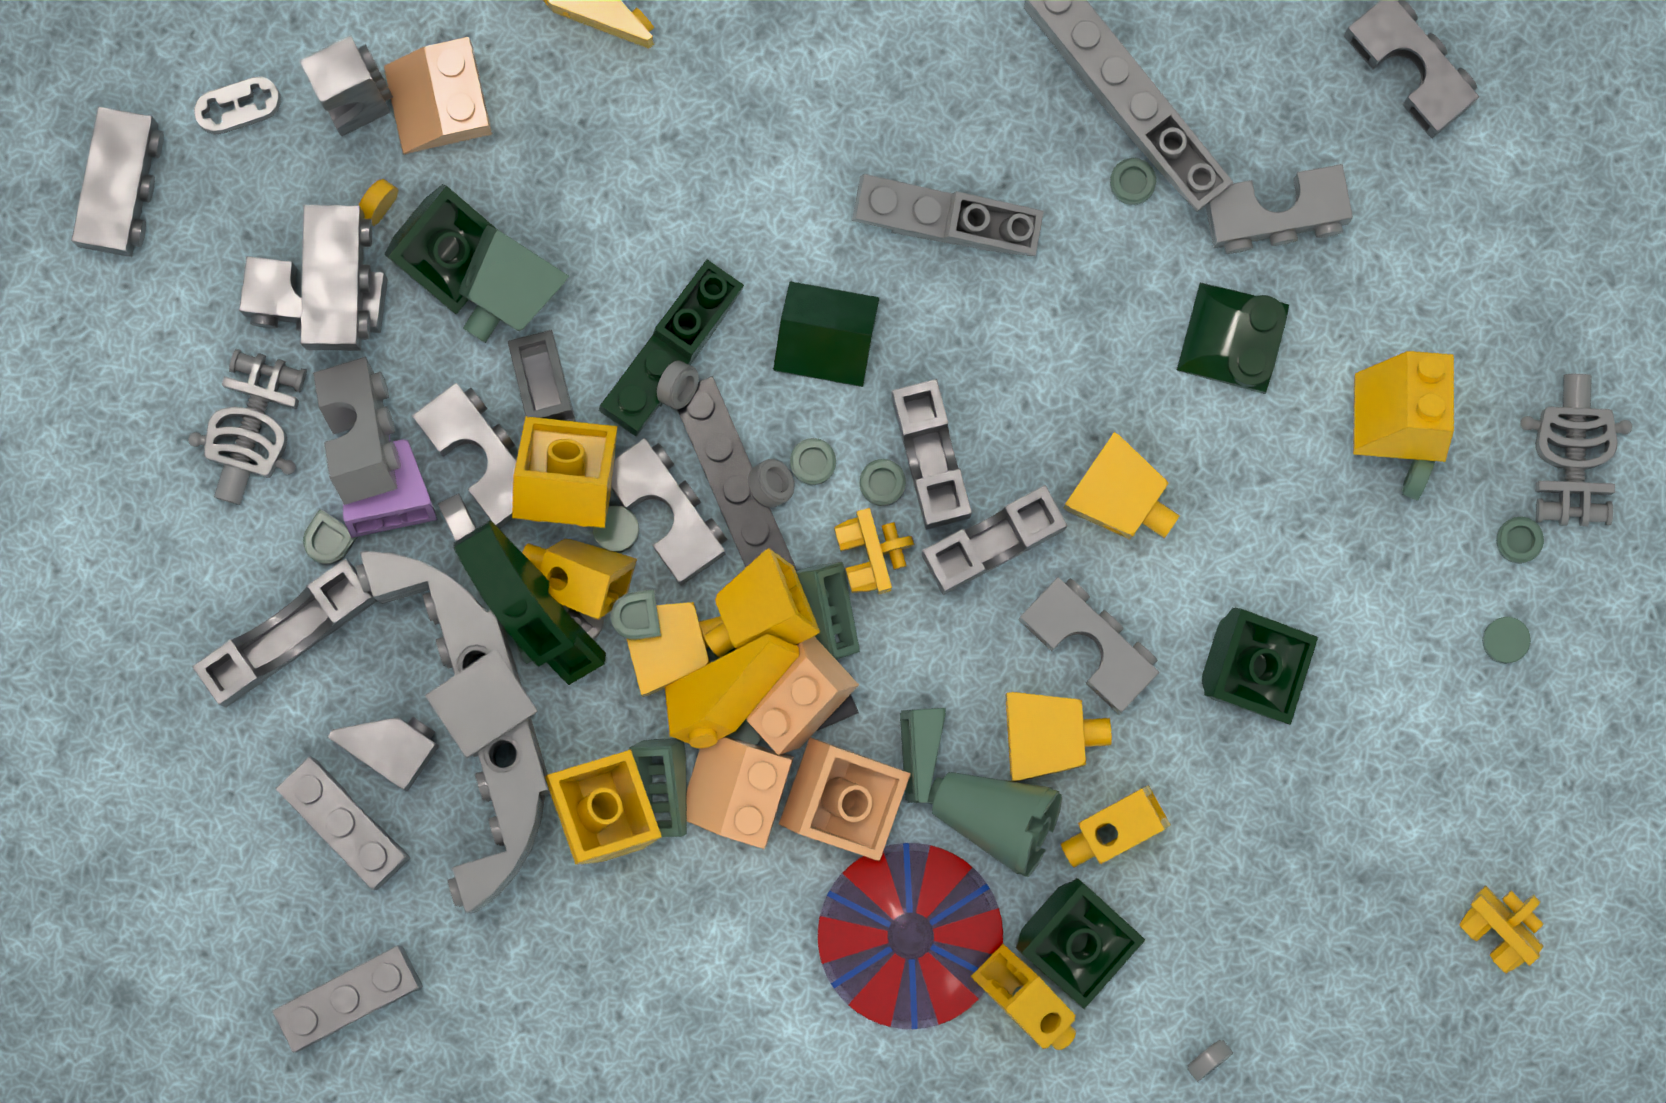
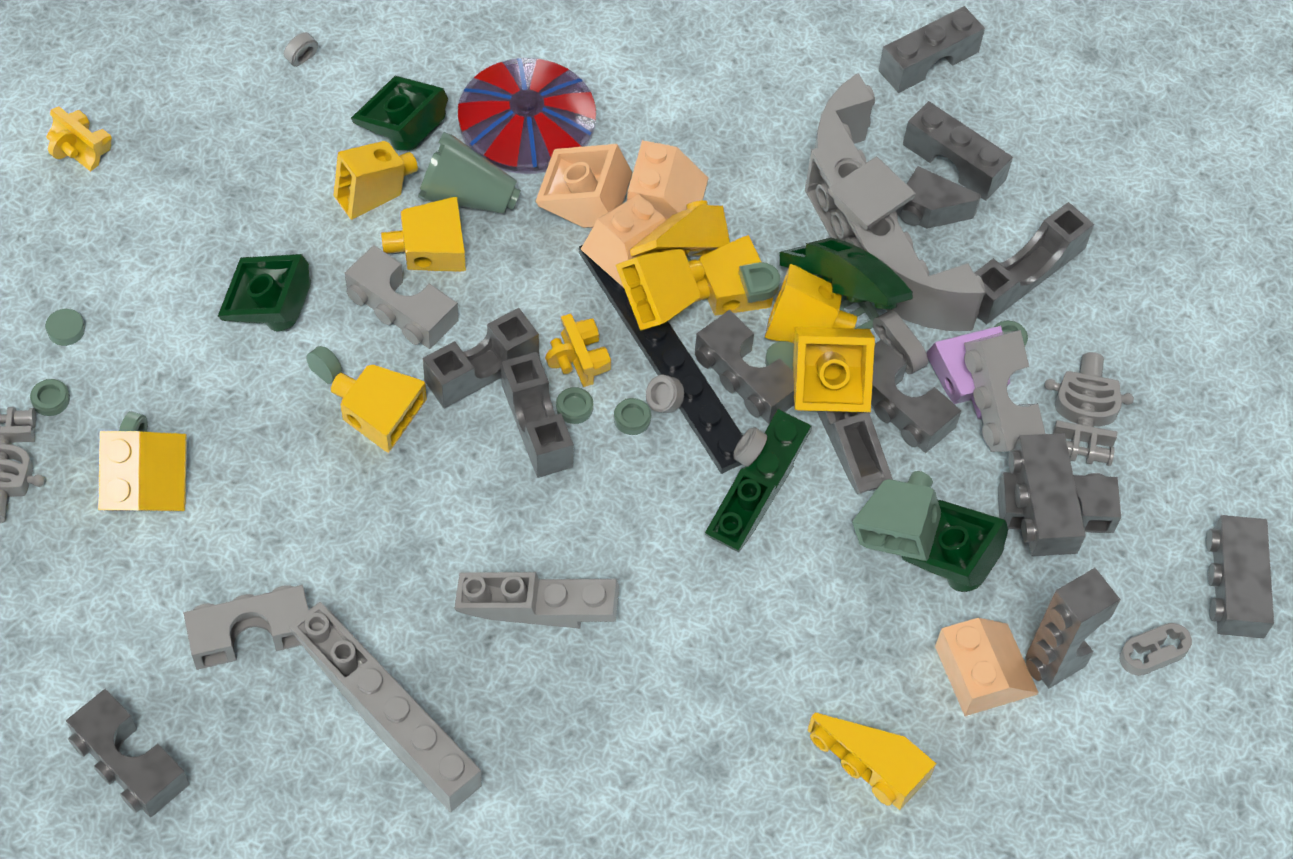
camera: 170 degrees right, 25 degrees down
(378, 200) = (1022, 578): yellow tile -> none
(603, 808) = (769, 158): yellow slope -> none
(675, 786) = (727, 191): sand green slope -> none
(825, 334) = (631, 511): dark green slope -> none
(830, 603) = (611, 312): sand green slope -> none
(920, 744) = (528, 229): sand green slope -> none
(1034, 1006) = (441, 62): yellow torso -> none
(1133, 181) = (379, 643): sand green tile -> none
(1186, 555) = (324, 363): none -> sand green tile
(1233, 337) = (286, 528): dark green slope -> none

